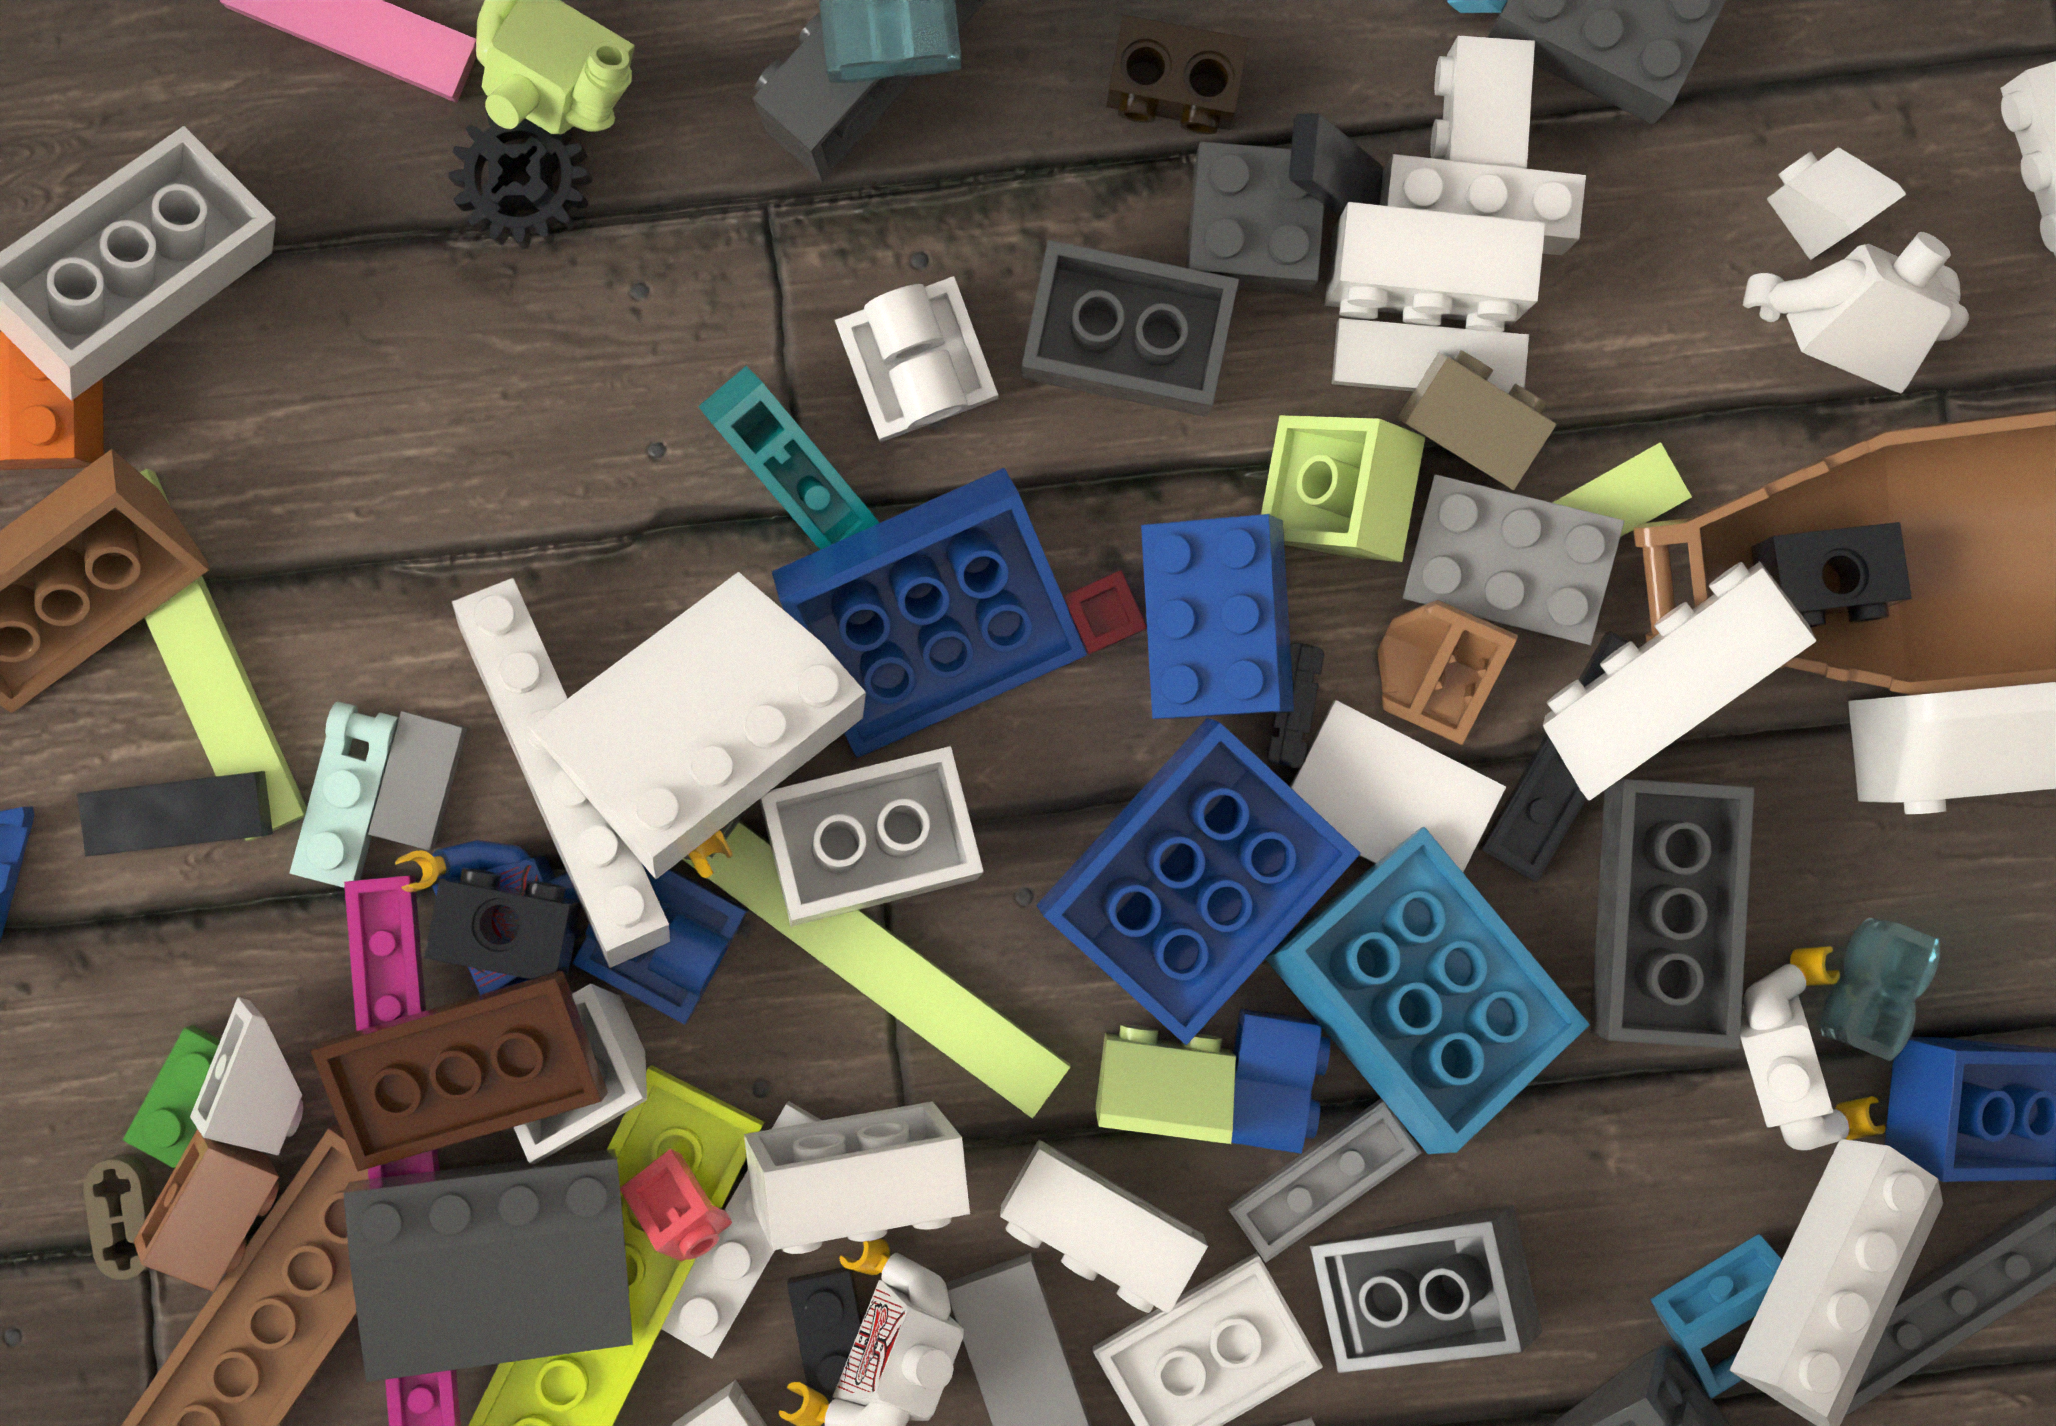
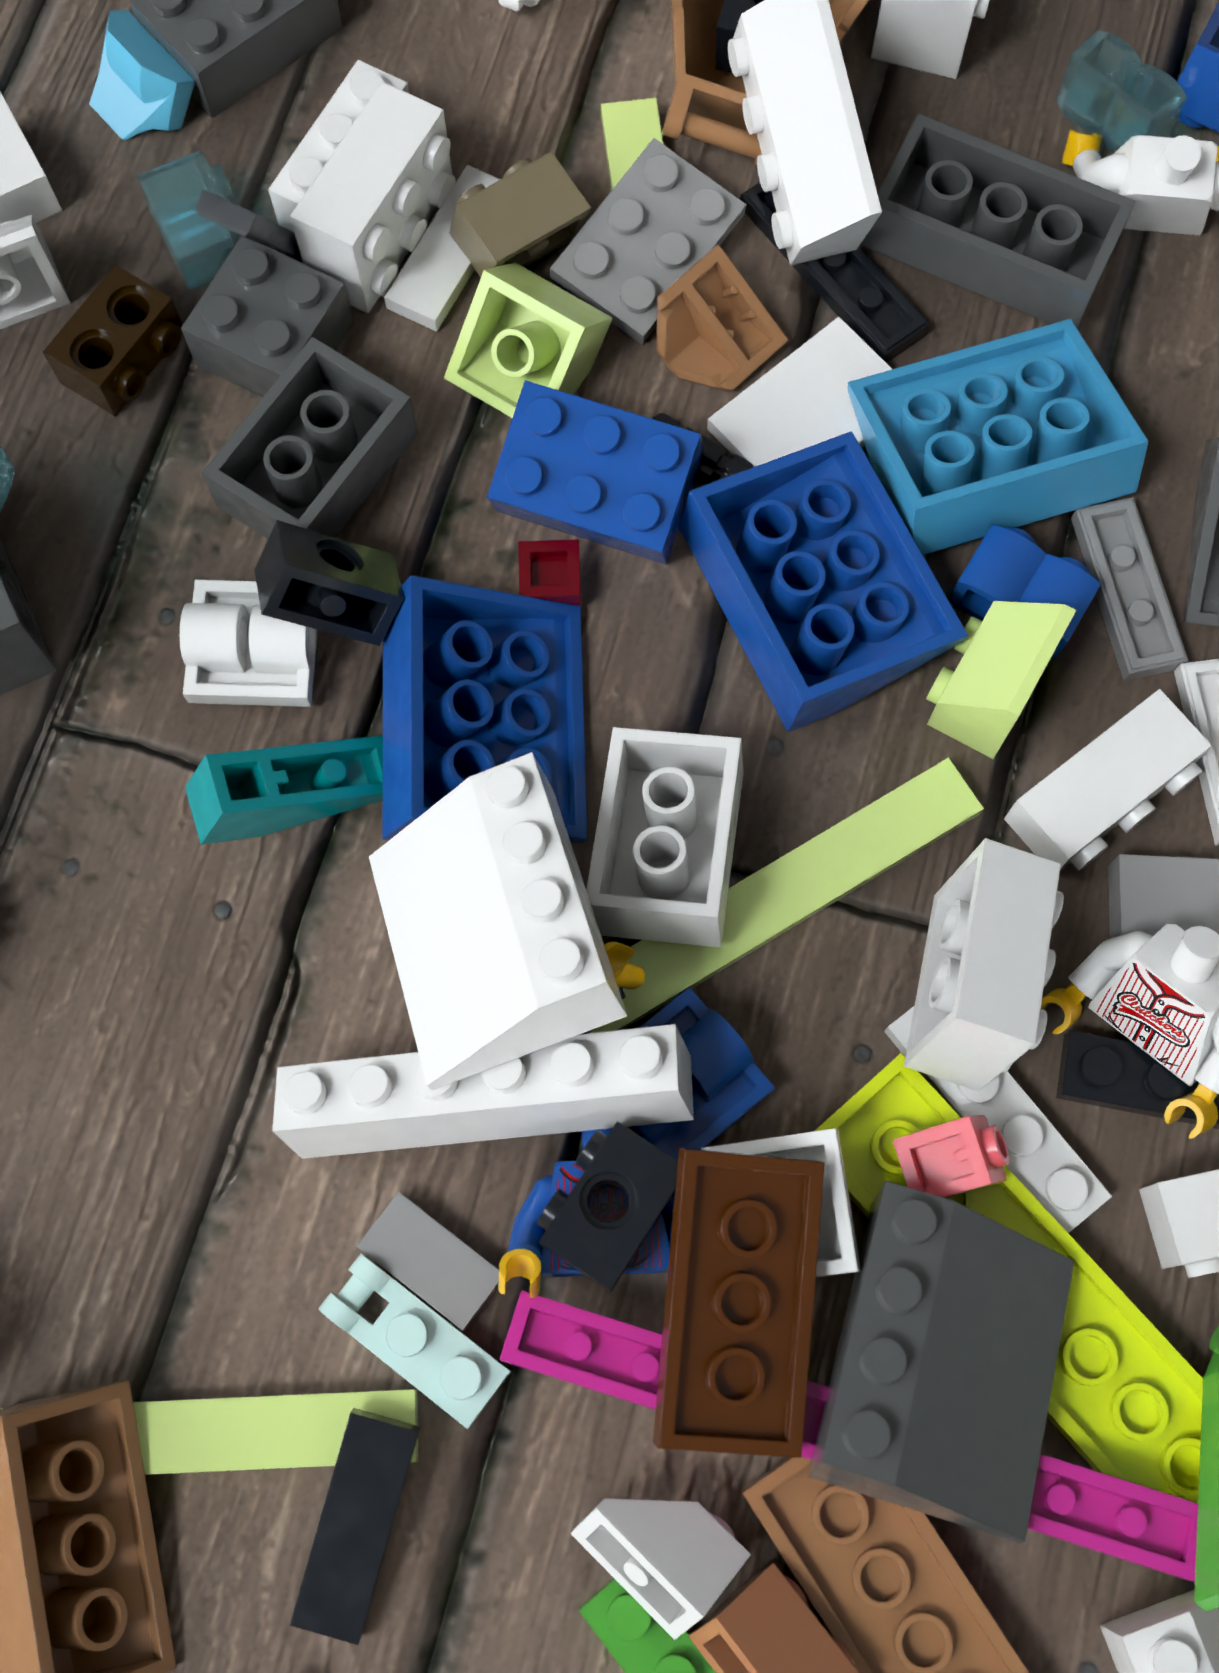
camera: 70 degrees left, 15 degrees down
(985, 414) = (328, 583): none -> black brick
(1353, 79) = (172, 195): none -> clear light blue brick
(1485, 101) = (256, 119): white brick -> none

